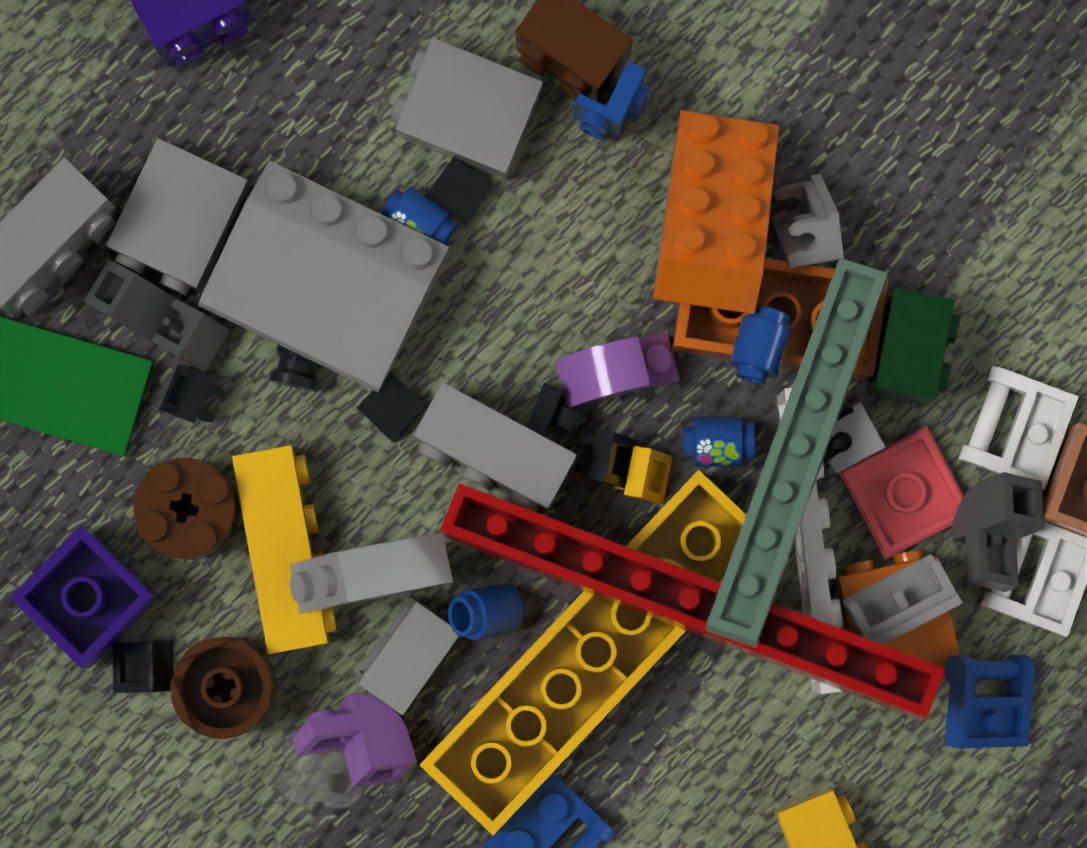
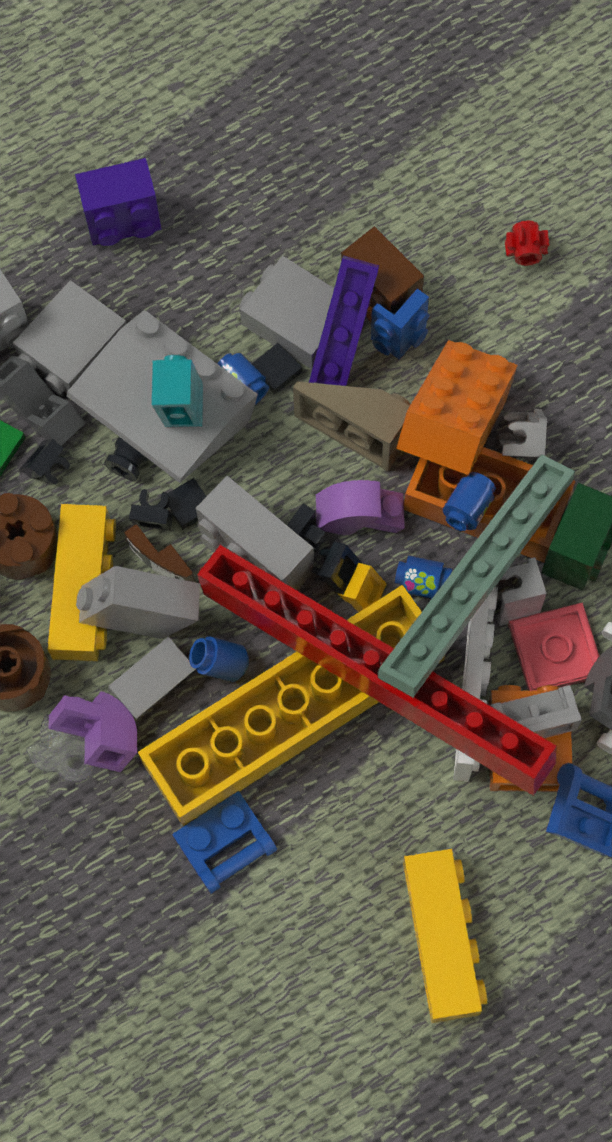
camera: 15 degrees right, 15 degrees down
(350, 439) = (152, 515): none -> black tile
(351, 287) = (177, 392): none -> teal brick
(387, 498) = (165, 562): none -> reddish brown slope
(539, 137) = (344, 322): none -> dark purple plate
(597, 251) = (356, 417): none -> dark tan slope

